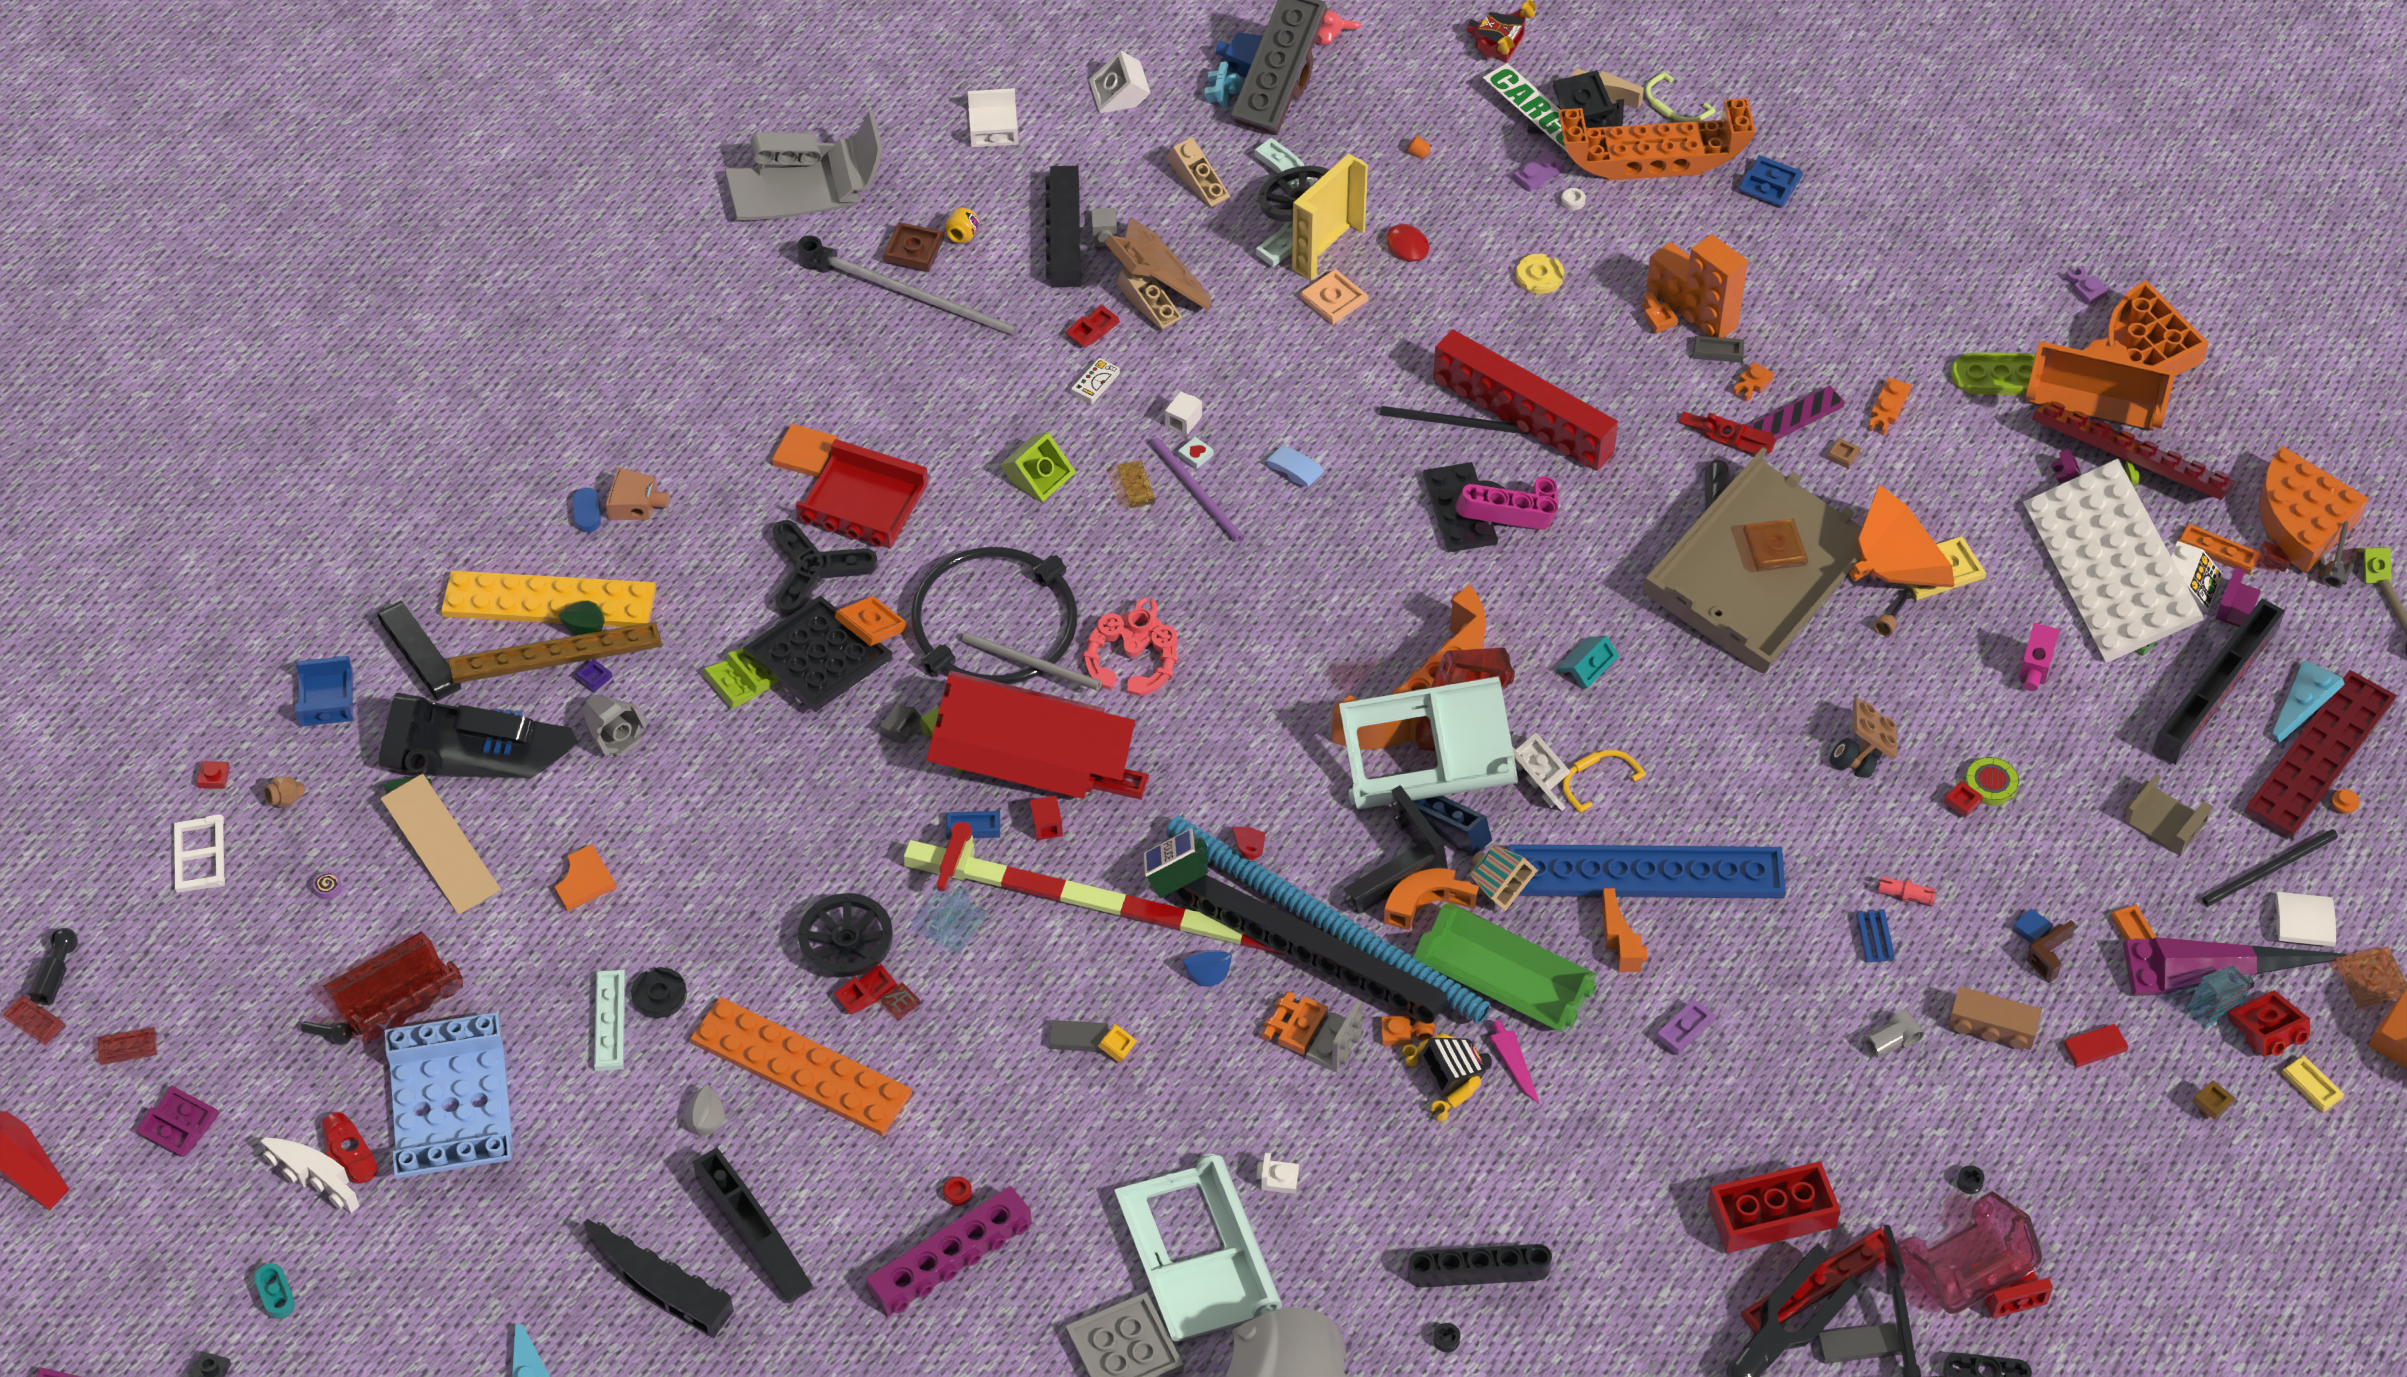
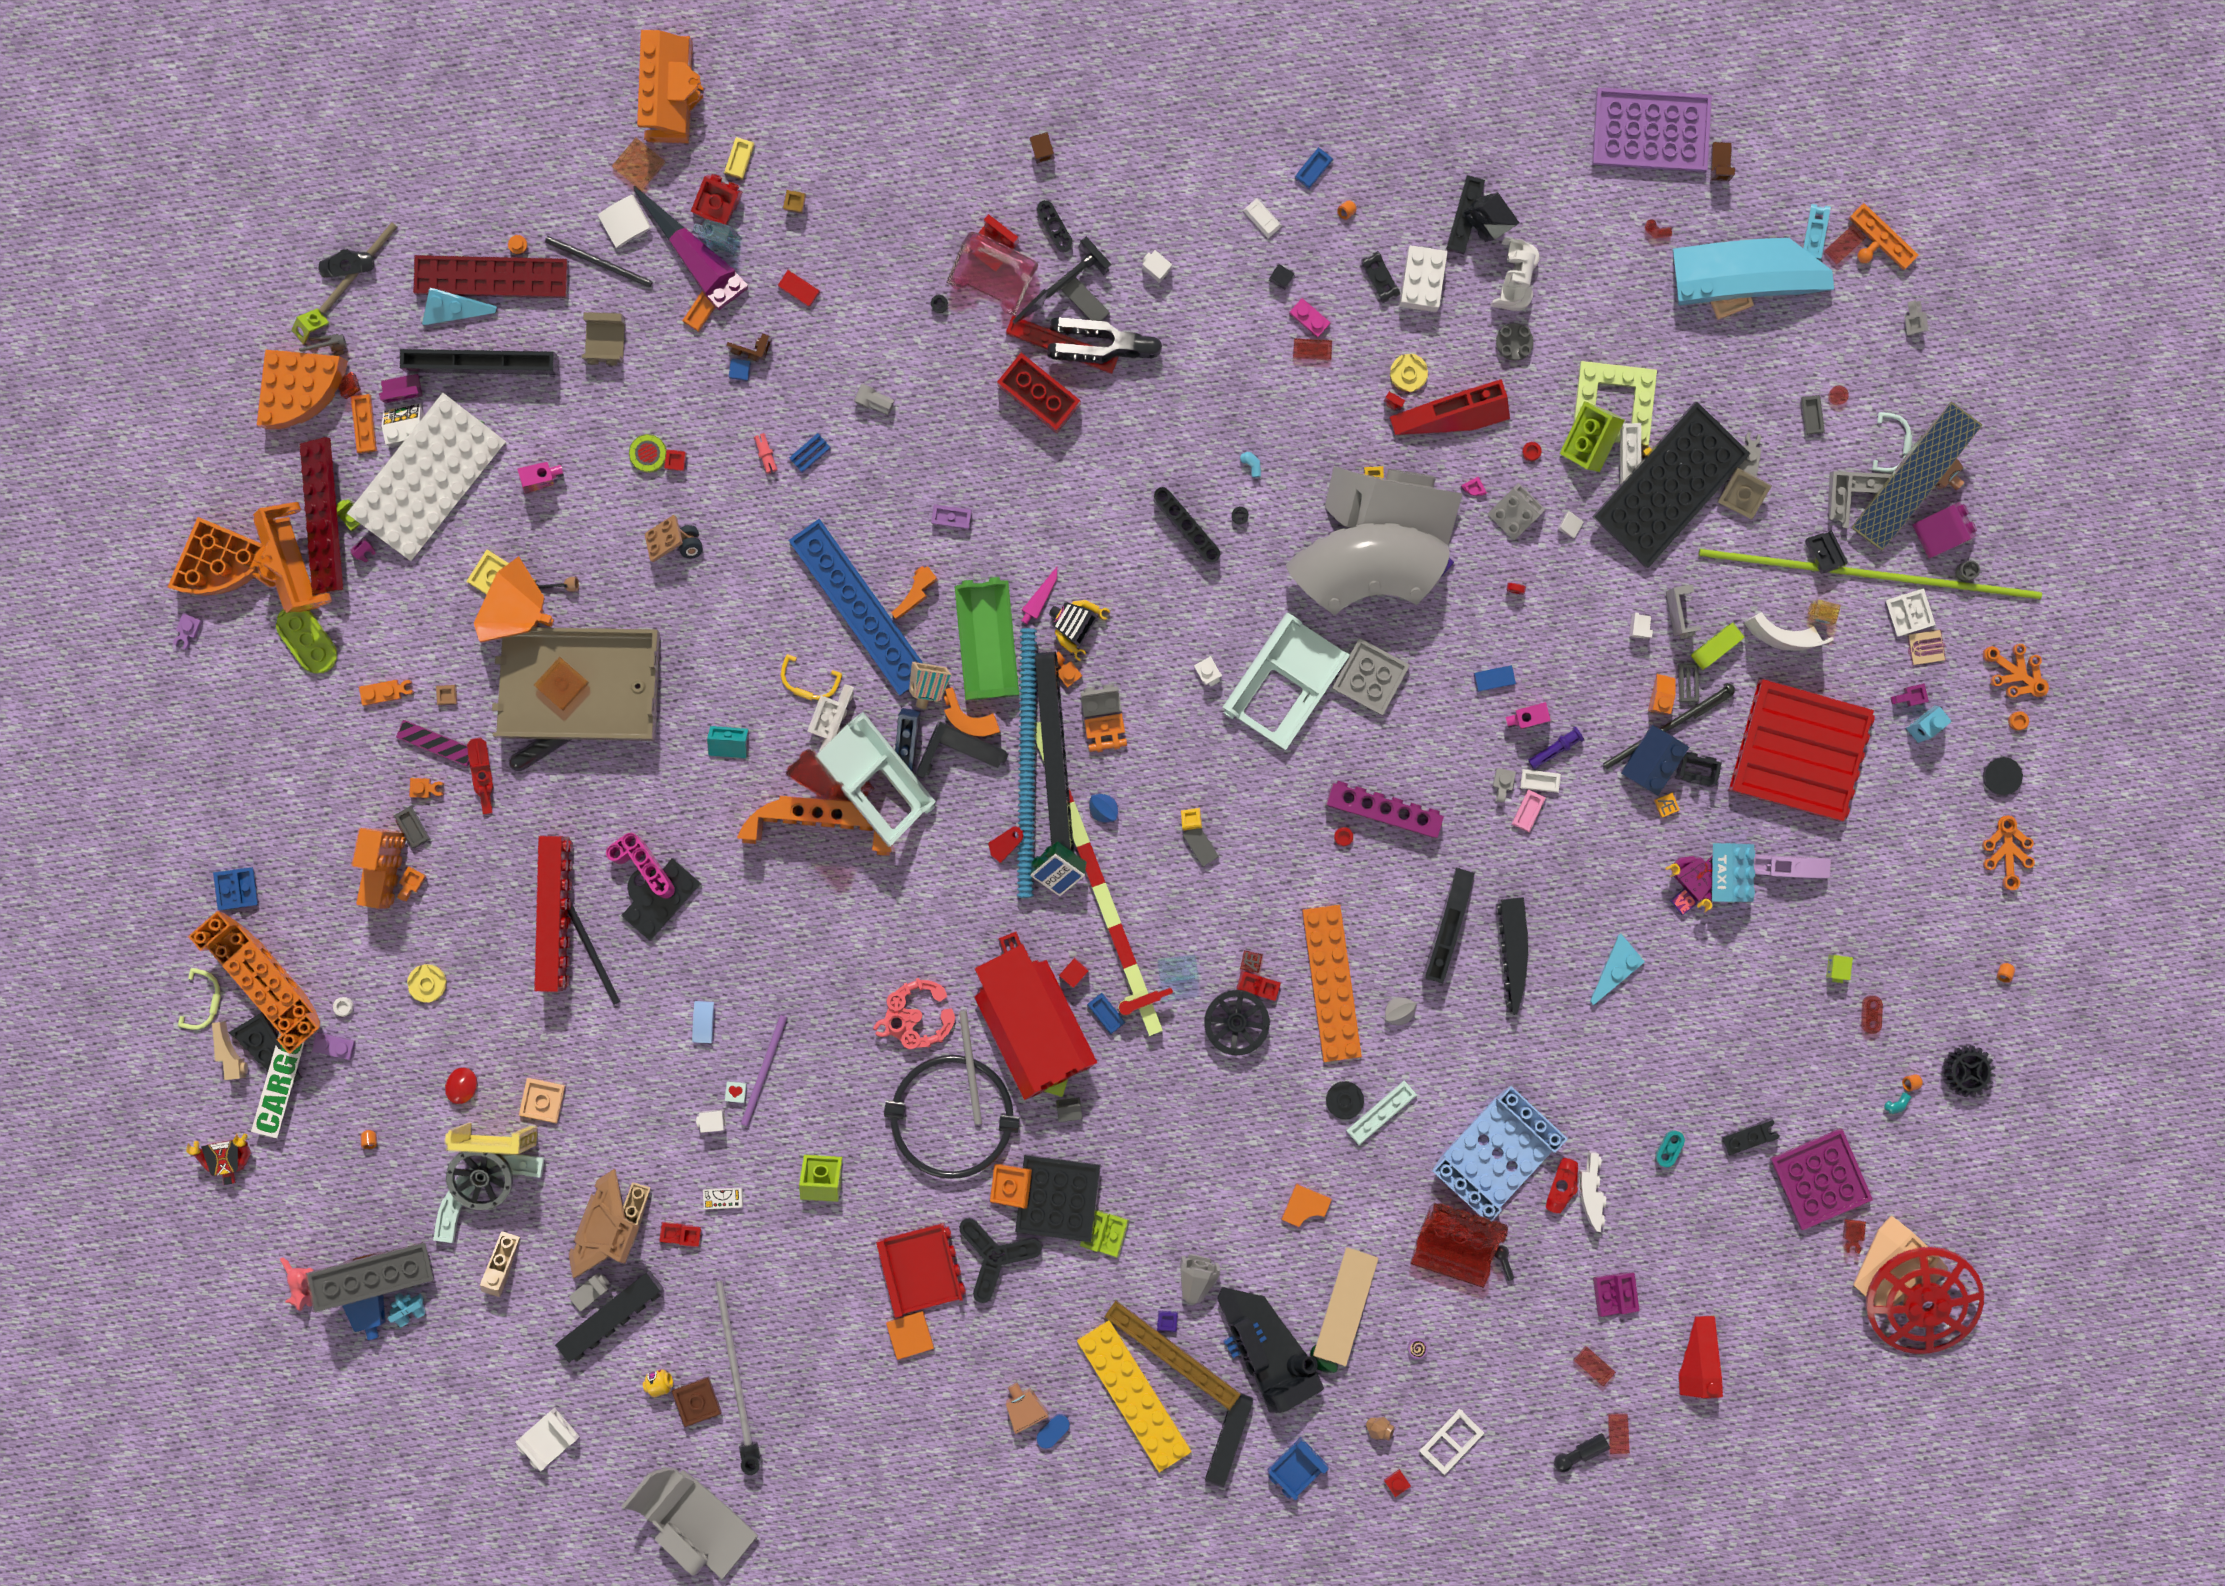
camera: 125 degrees left, 35 degrees up
(583, 617) = (1136, 1359): dark green piece -> none
(1119, 84) = (455, 1378): white slope -> none
(1136, 484) = (788, 1109): clear yellow plate -> none
(1584, 92) = (251, 1056): black tile -> none
(1995, 1018) = (823, 351): medium nougat brick -> none

